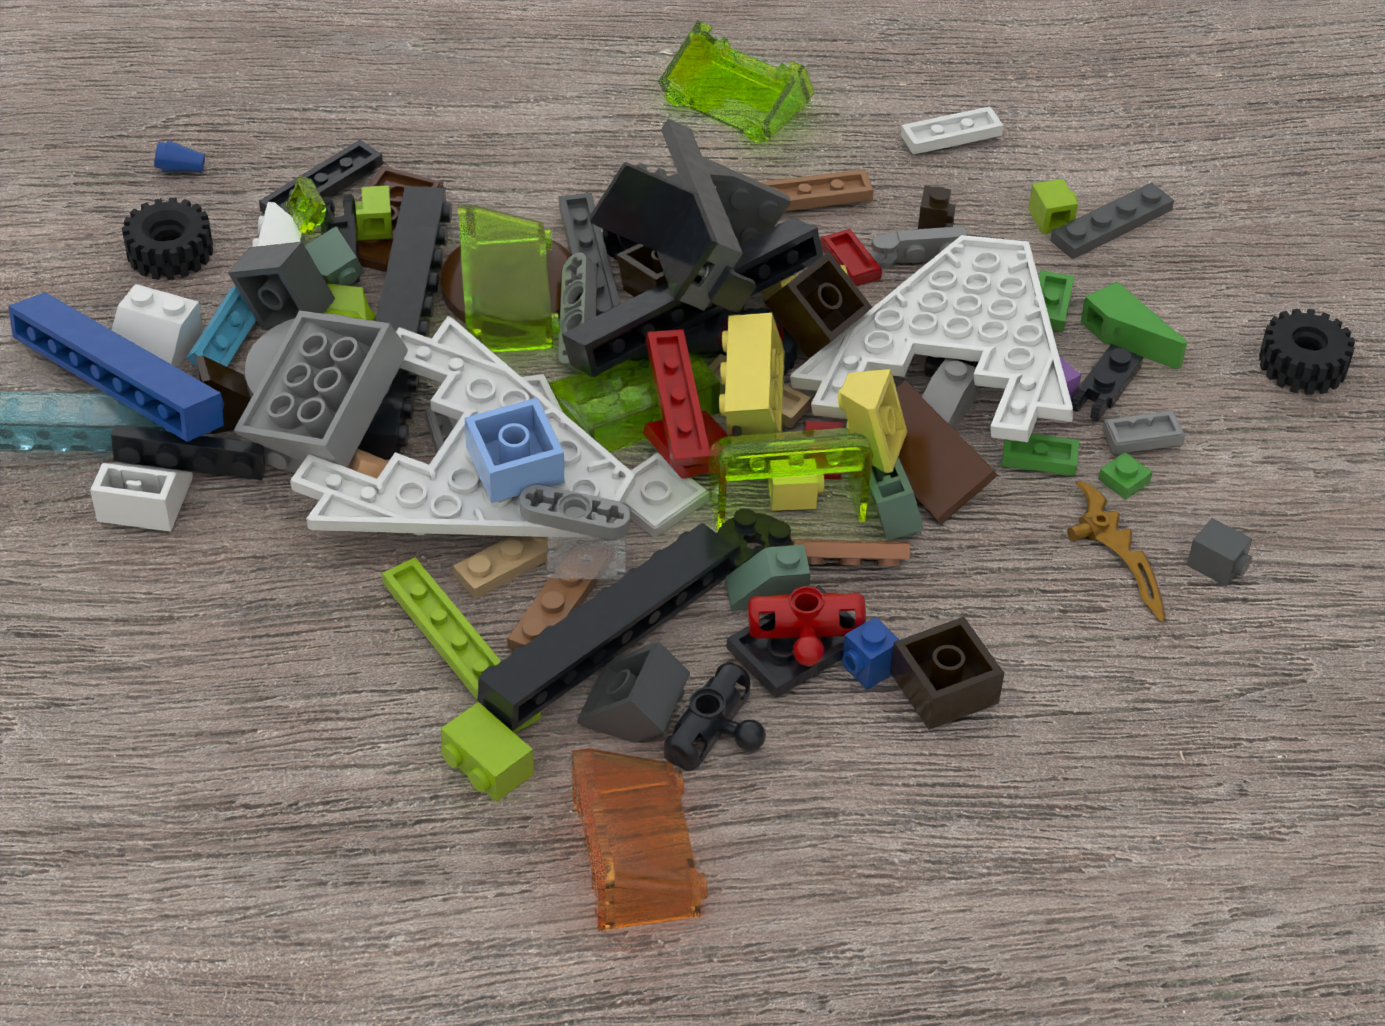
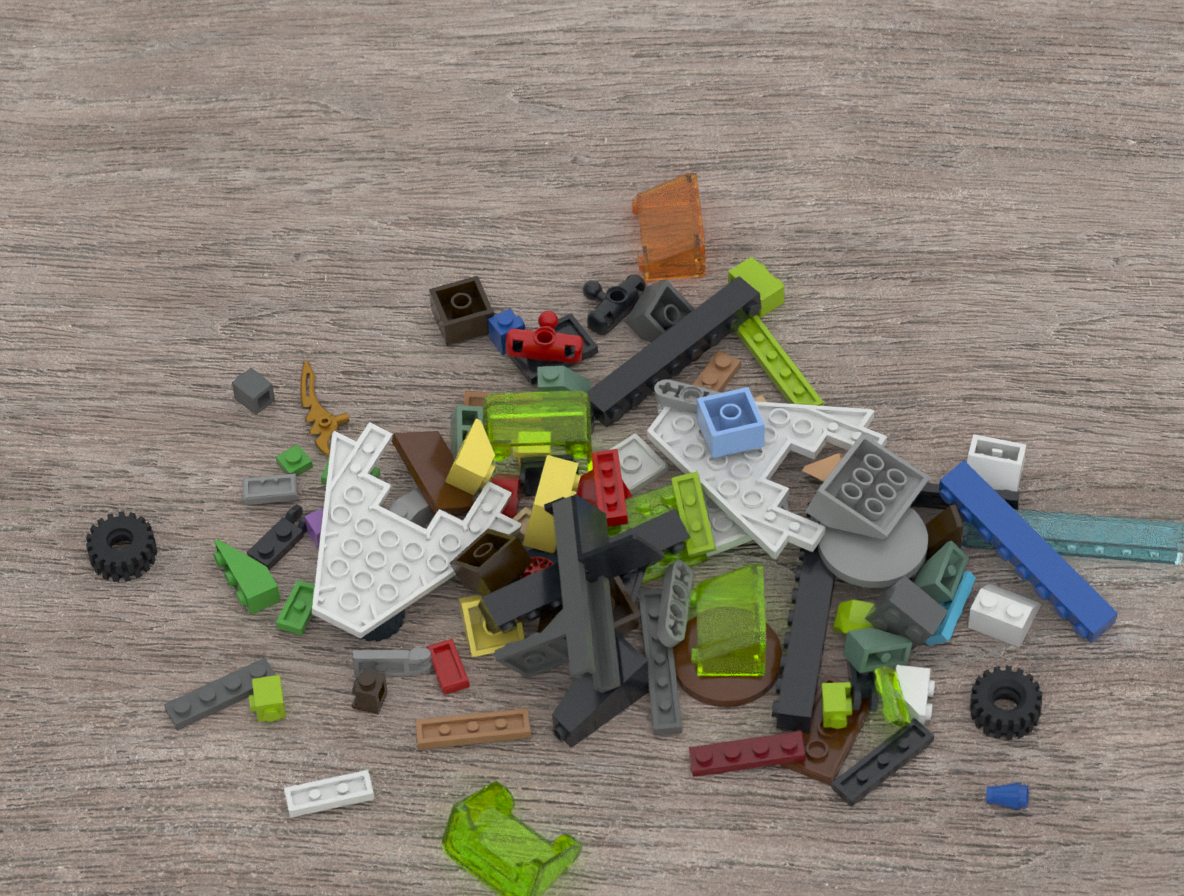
camera: 170 degrees left, 5 degrees up
(233, 343) = (942, 573): none -> sand green slope
(484, 181) = (747, 753): none -> dark red plate
(560, 381) = (694, 513): none -> lime plate

